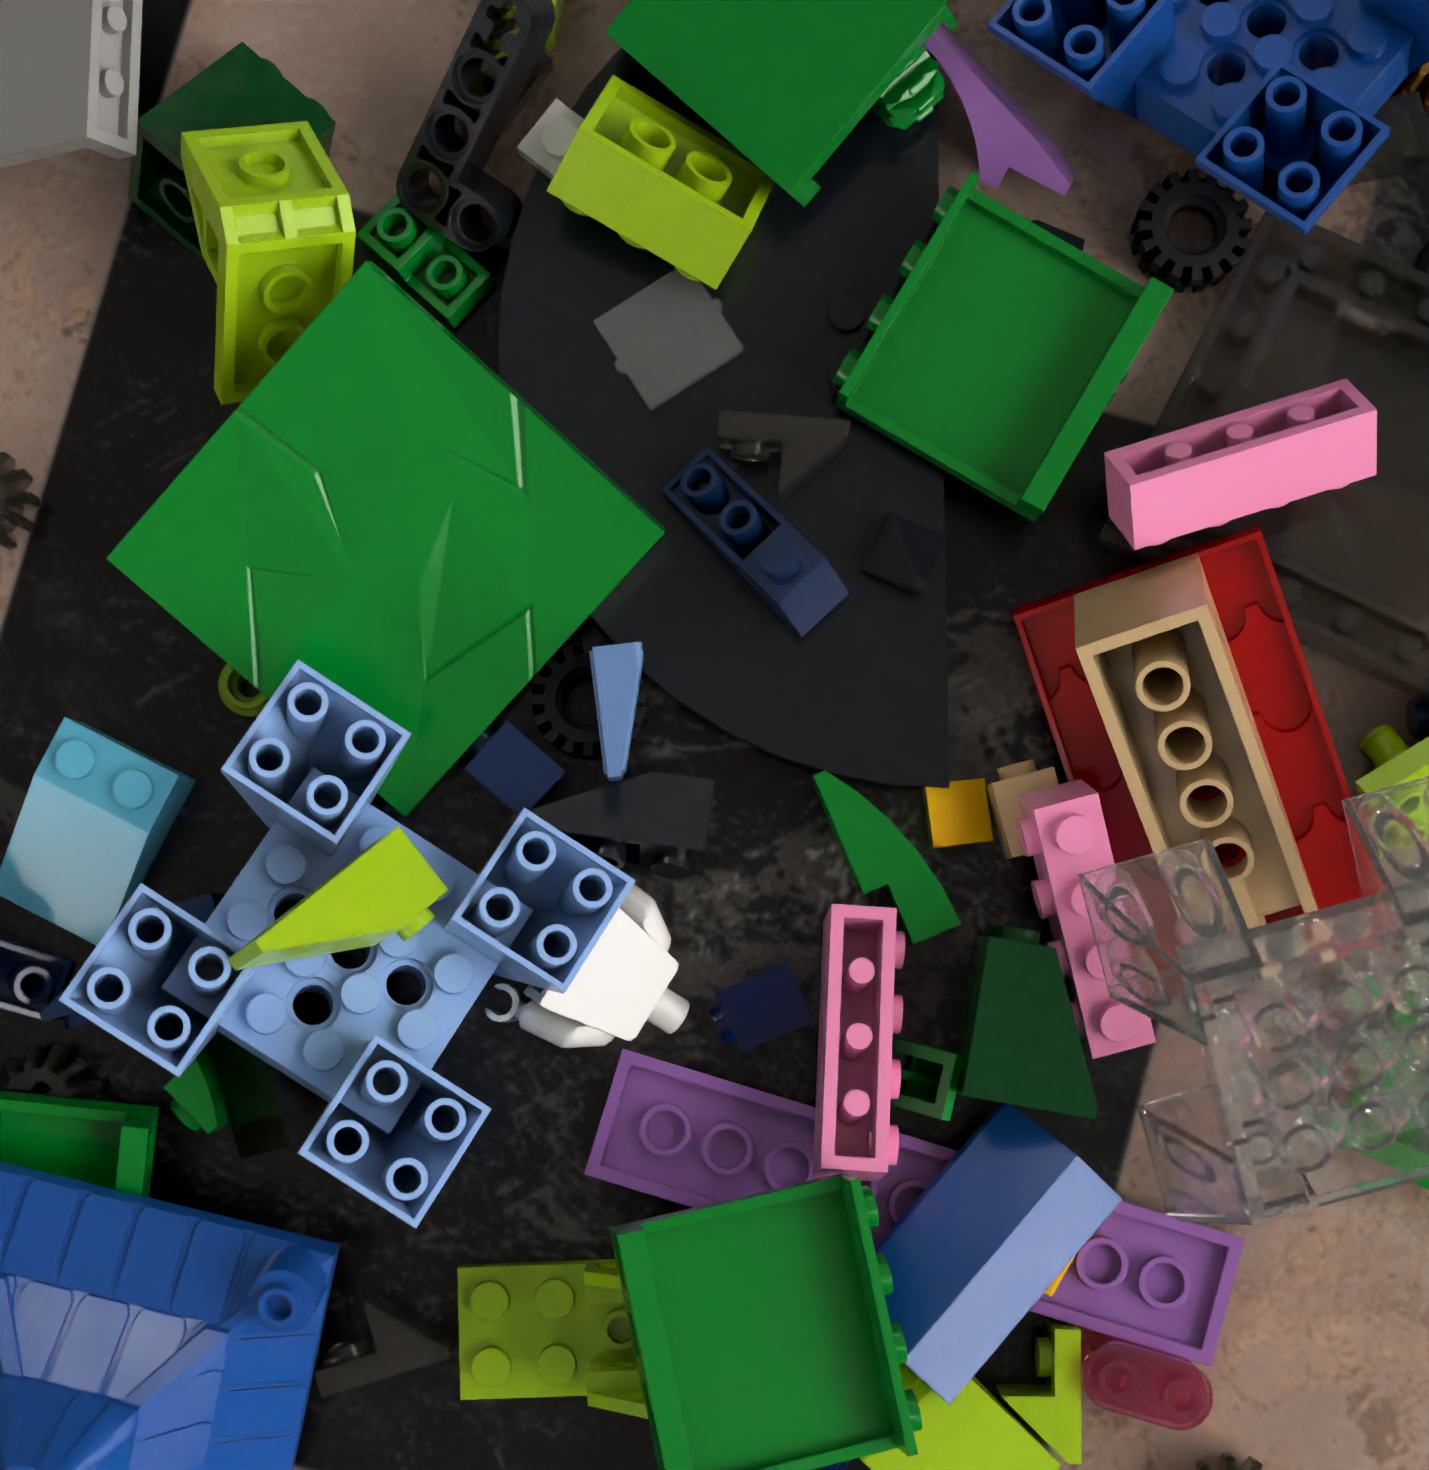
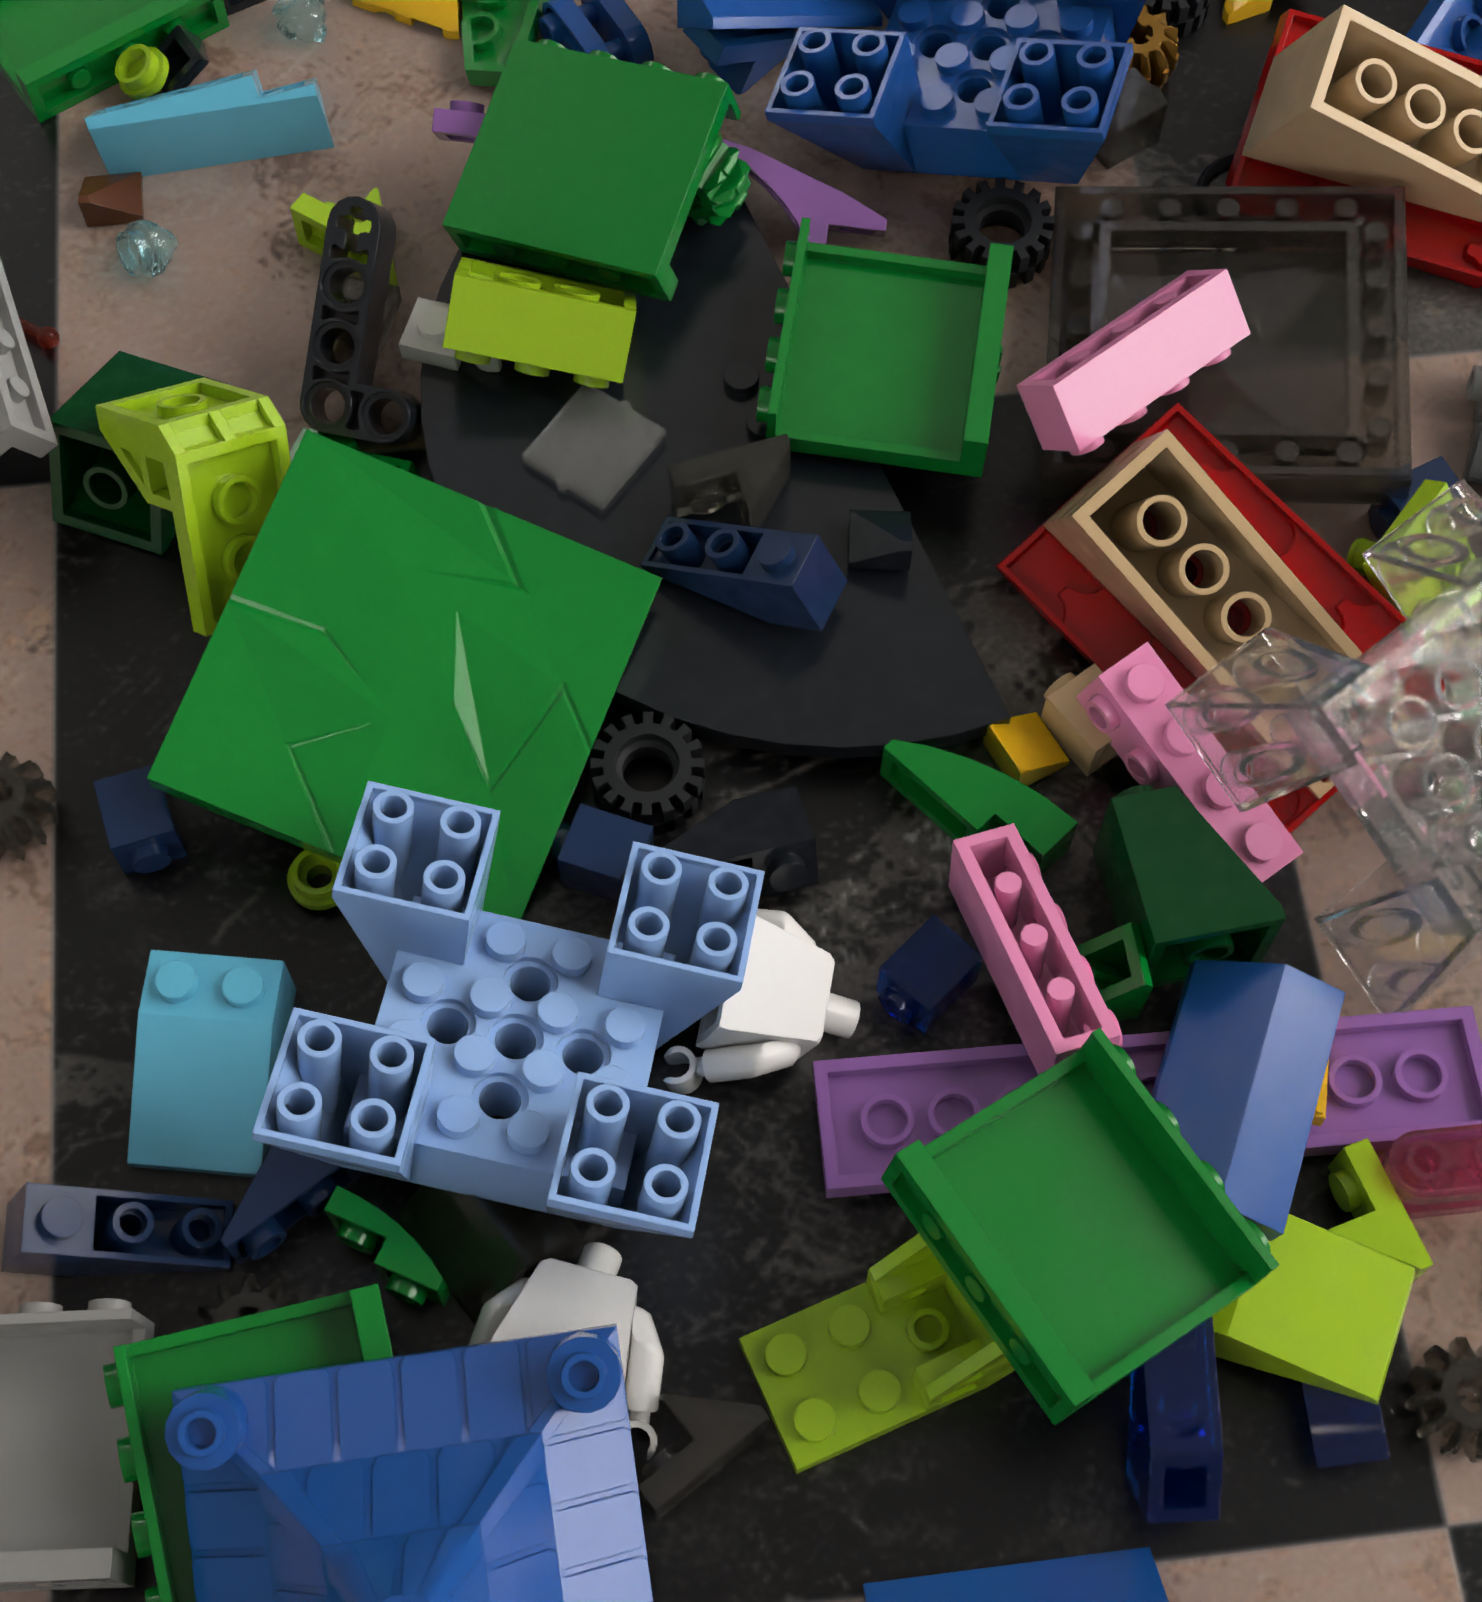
camera: 25 degrees left, 20 degrees down
(90, 576) = (139, 822): none -> dark blue brick
(301, 1198) = (578, 1297): none -> white torso
(360, 905) = (505, 973): lime slope -> none
(616, 689) = (671, 735): medium blue slope -> none

